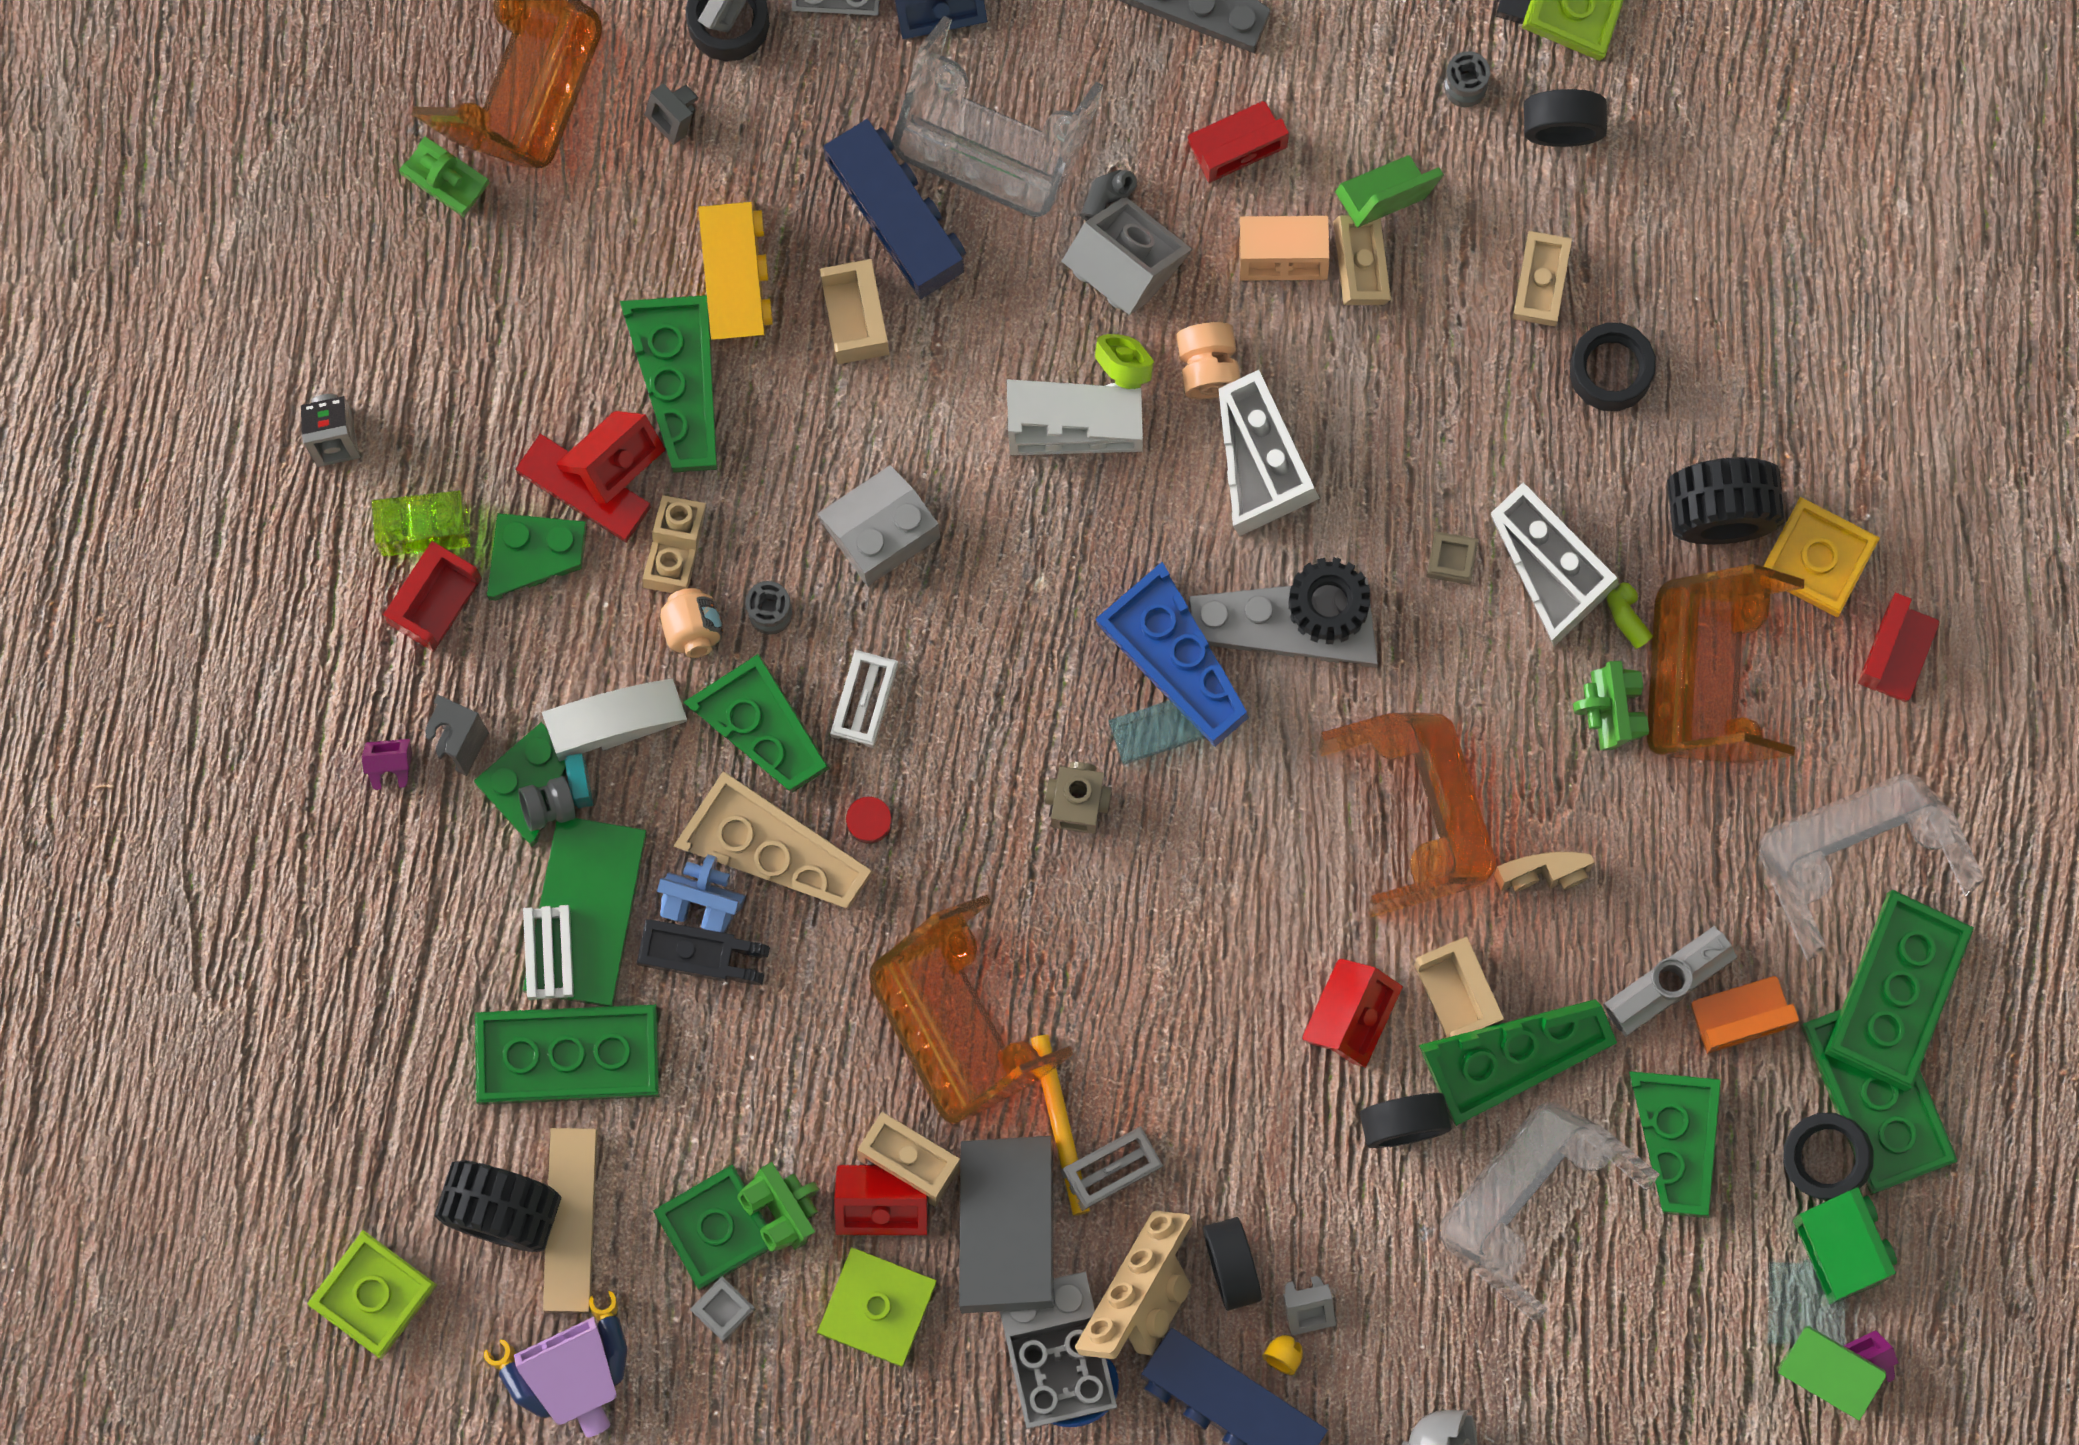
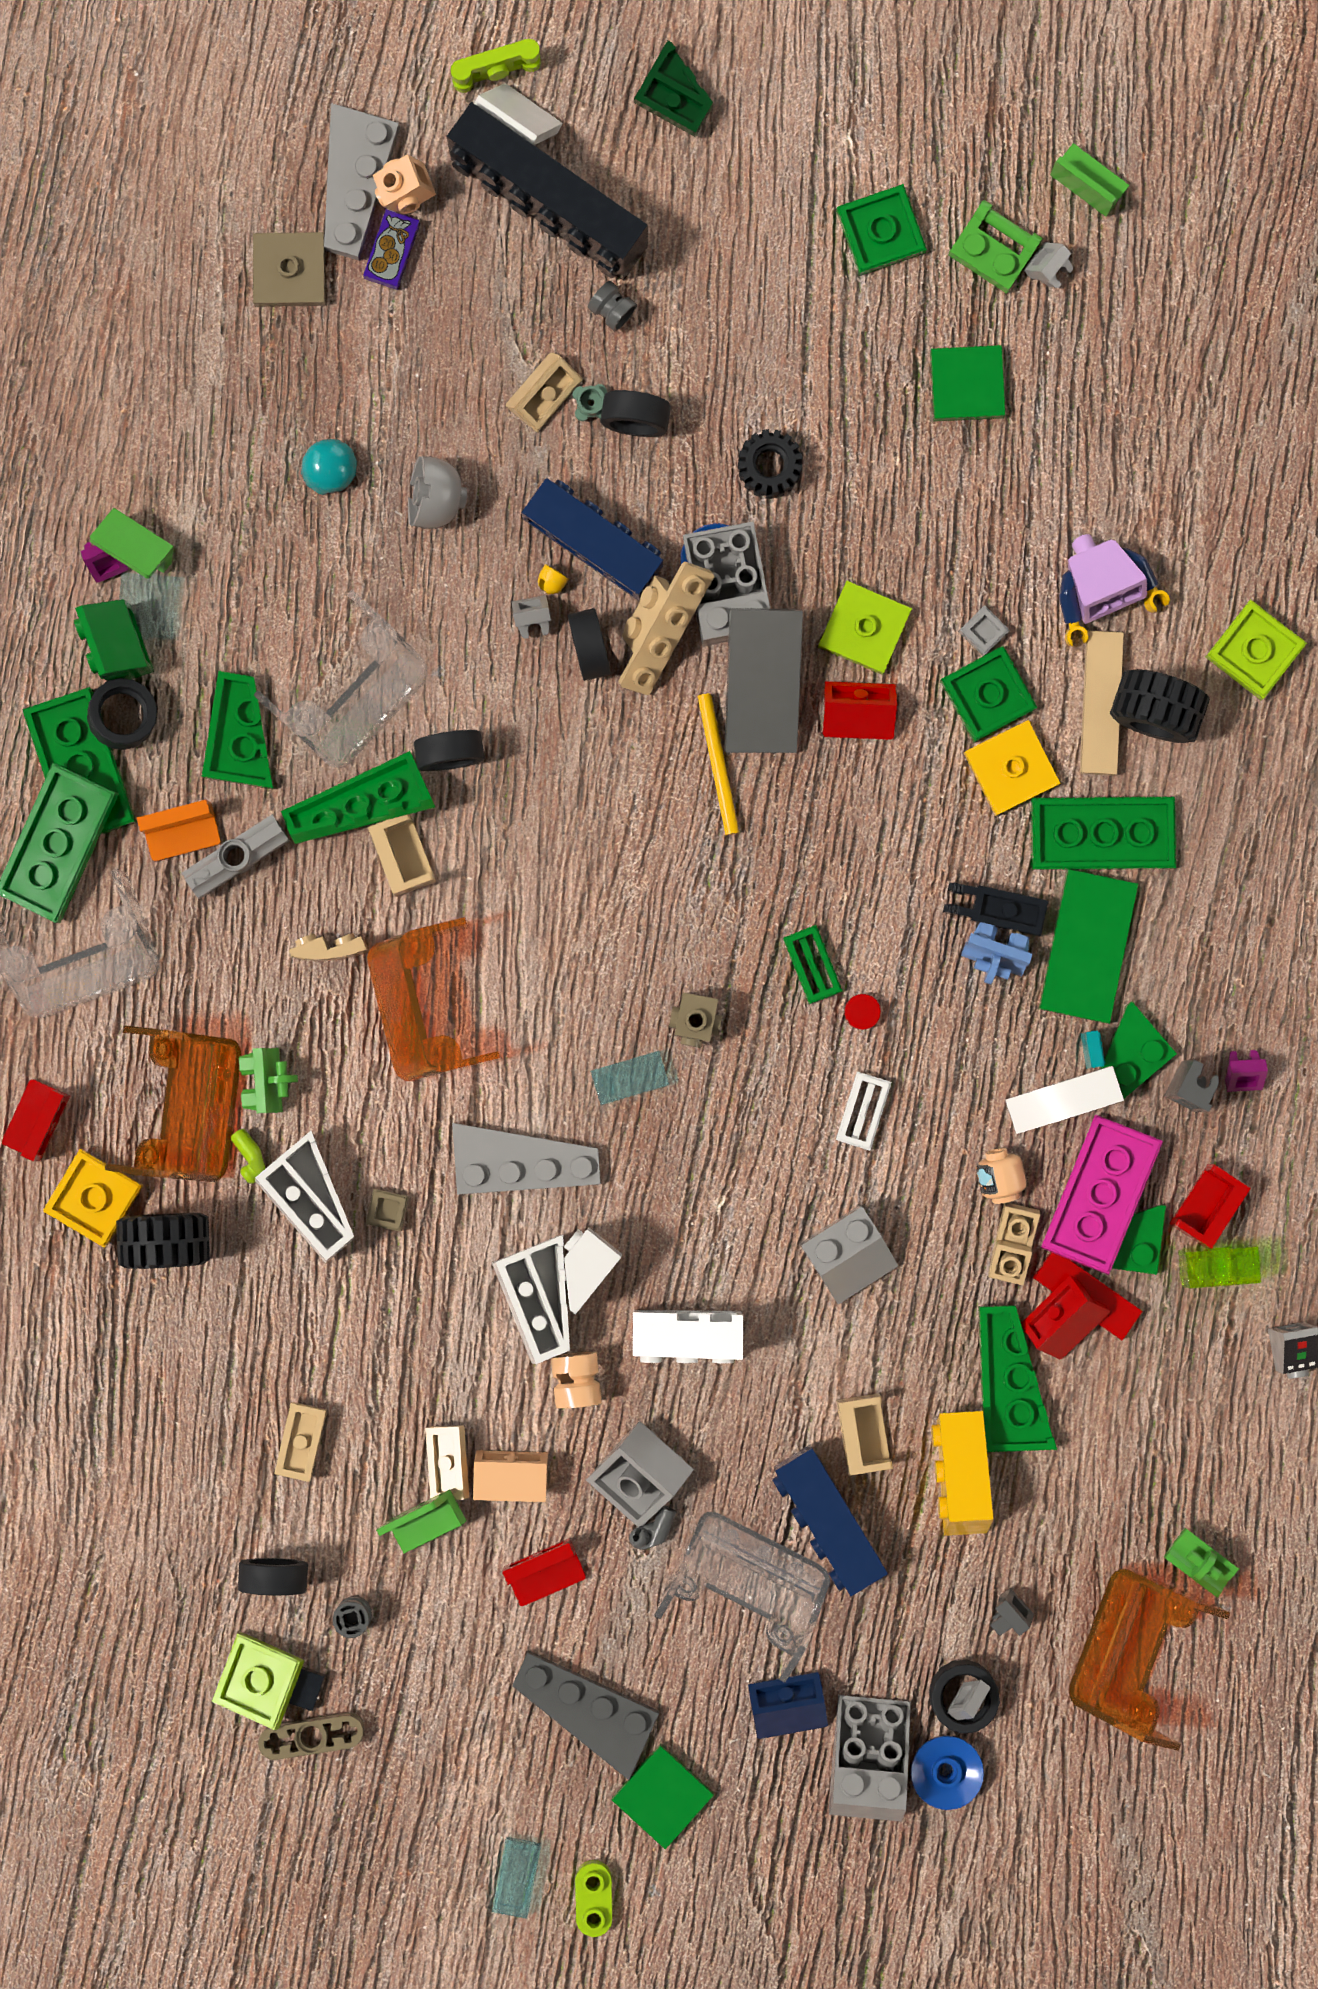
camera: 175 degrees right, 10 degrees up
(546, 803) = (1111, 1031): dark grey wheel -> none
(546, 914) = (1117, 881): white tile -> none
(566, 604) = (1102, 1194): none -> dark pink tile
(684, 1133) = (1011, 768): none -> yellow plate
(761, 722) = (945, 1092): green wing -> none
(770, 844) = (949, 999): tan wing -> none
(773, 615) = (933, 1186): dark grey wheel -> none
(788, 1204) = (947, 717): bright green hips -> none
(909, 1157) = (837, 736): tan panel -> none
(917, 841) = (801, 937): none -> green tile
(945, 1023) = (802, 840): clear orange windscreen -> none
(1079, 1186) = (685, 739): light grey tile -> none
(1124, 360) = (645, 1381): lime plate -> none
(1170, 649) = (619, 1142): blue wing -> none
(1199, 493) = (587, 1265): none -> white slope
(1334, 574) = (510, 1171): black tyre -> none
(1353, 1011) = (486, 843): red panel -> none
(1628, 337) = (221, 1371): black tyre -> none

